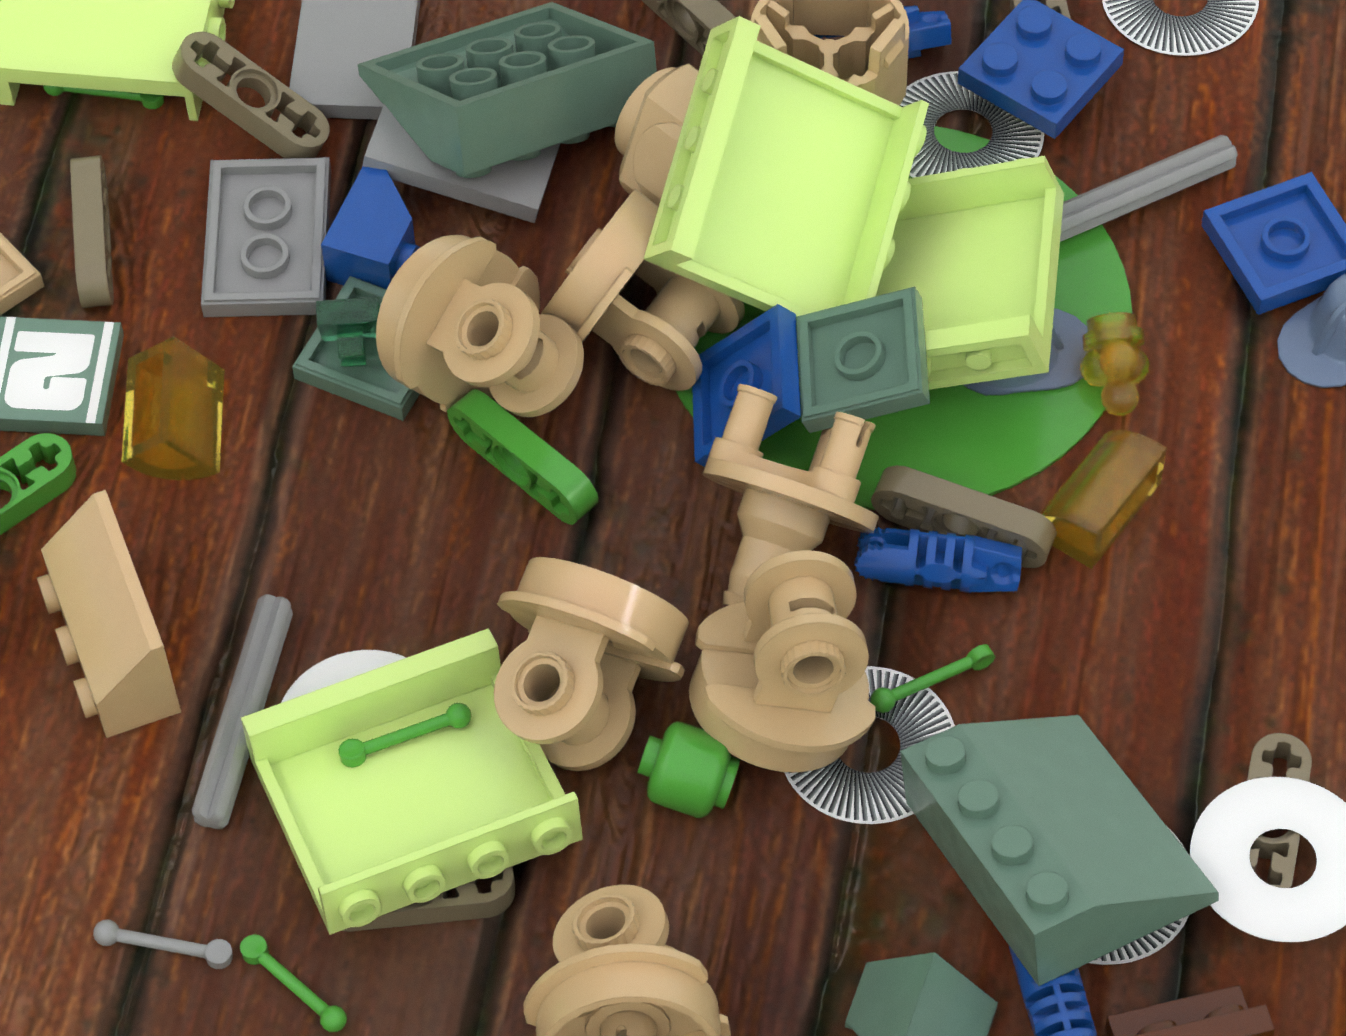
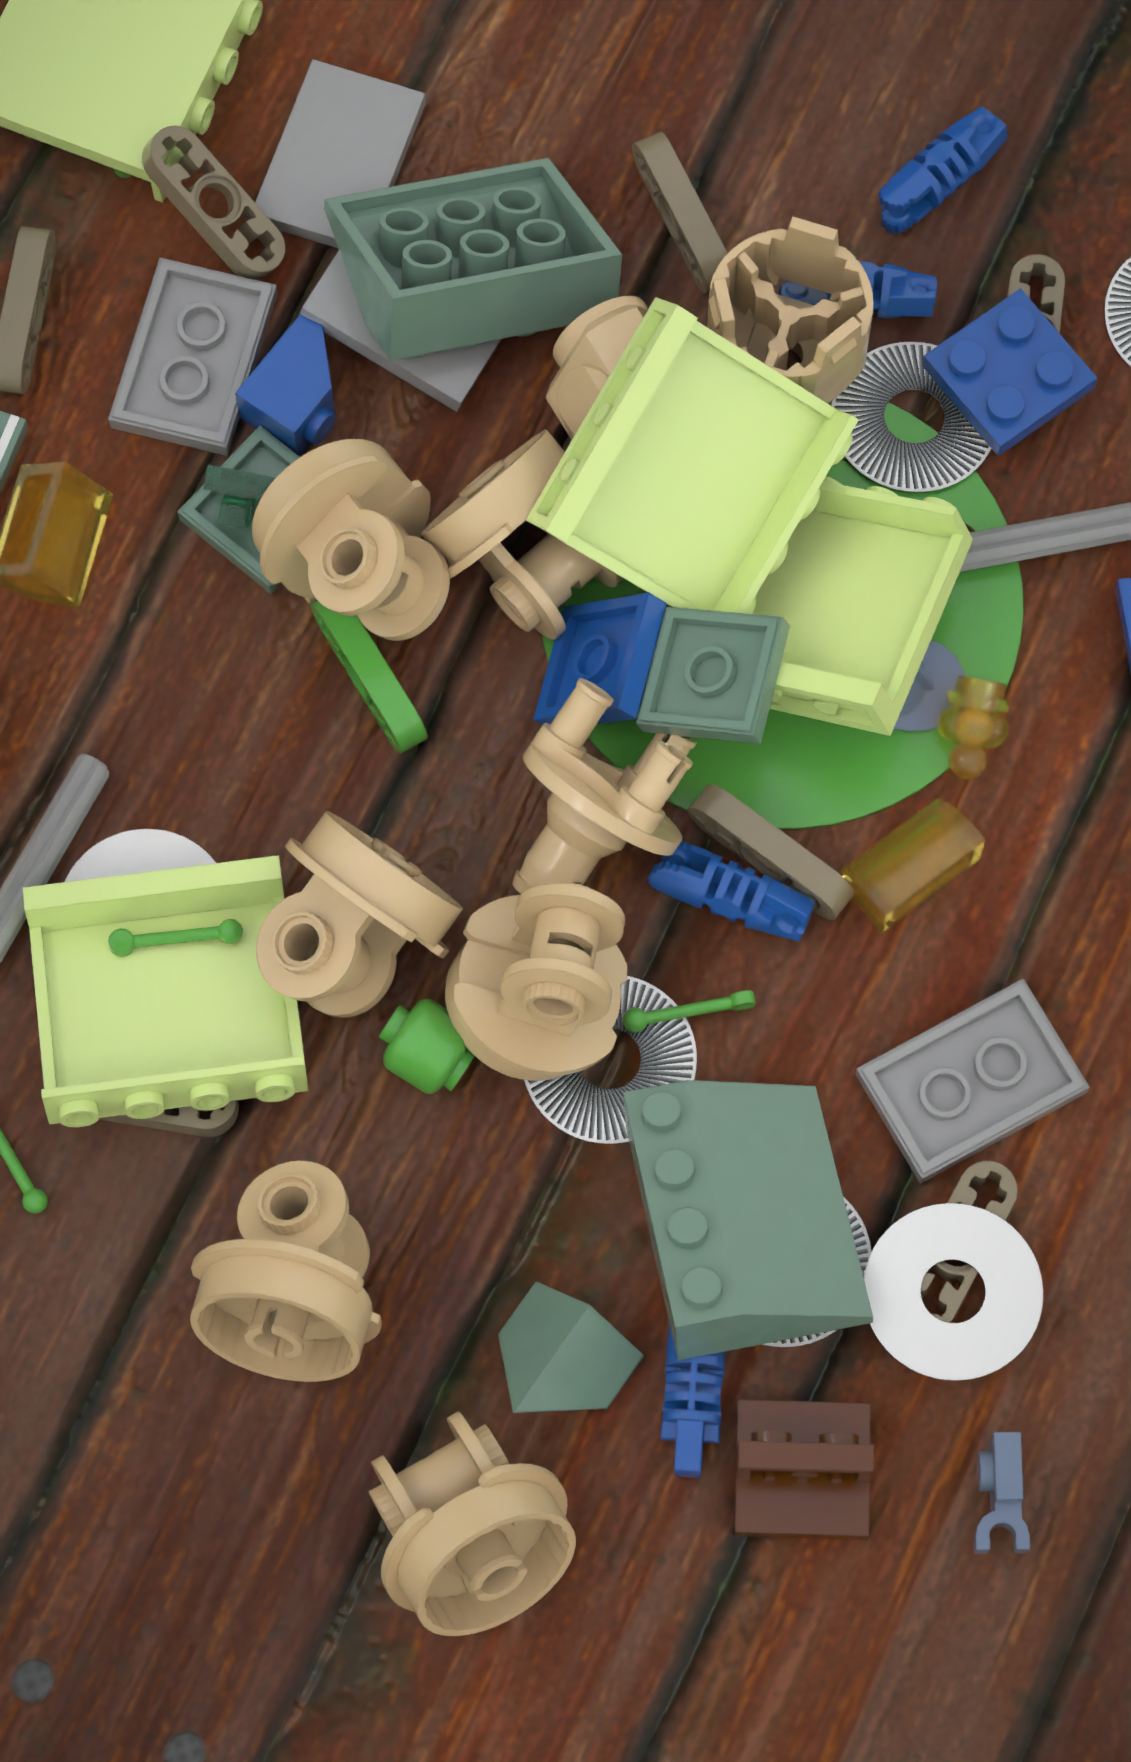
camera: 15 degrees right, 15 degrees up
(1227, 673) = (972, 1081): none -> light grey tile

